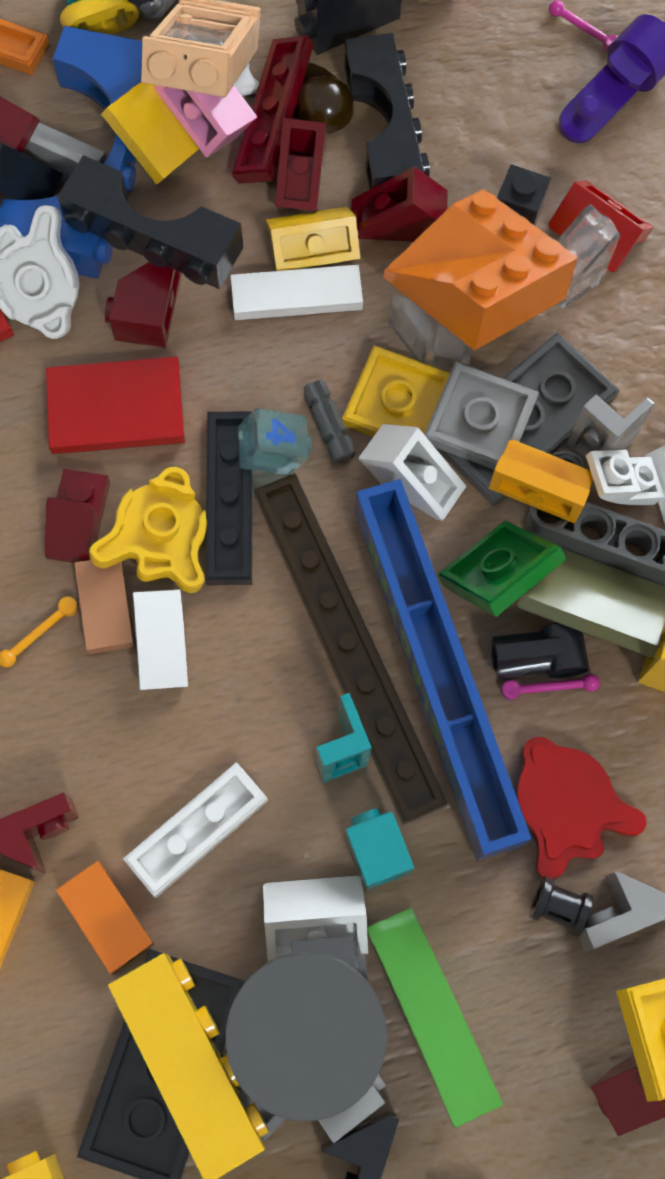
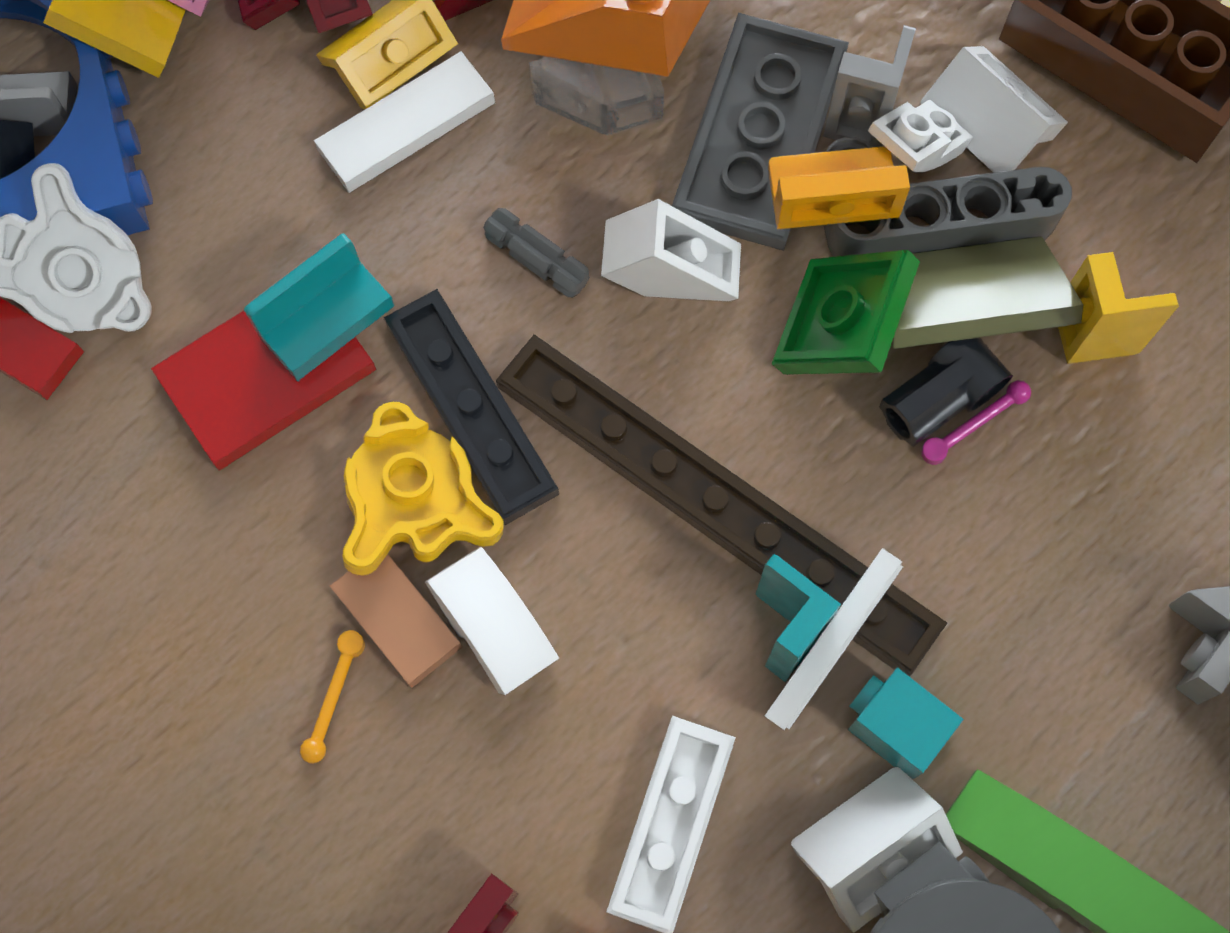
camera: 25 degrees left, 0 degrees up
(75, 515) = (296, 529): dark red slope -> none
(144, 305) = (229, 226): dark red slope -> none
(167, 383) = (318, 307): none -> teal panel
(197, 245) = (258, 122): black arch -> none
(273, 441) = (488, 309): clear light blue brick -> none
(363, 771) = (834, 639): none -> white tile
(394, 393) = (595, 178): yellow tile -> none
(440, 672) = (850, 472): blue brick -> none
(479, 415) = (712, 152): light grey tile -> none
(561, 906) = (1147, 667): black bush -> none
(569, 804) = (1080, 547): red tile -> none

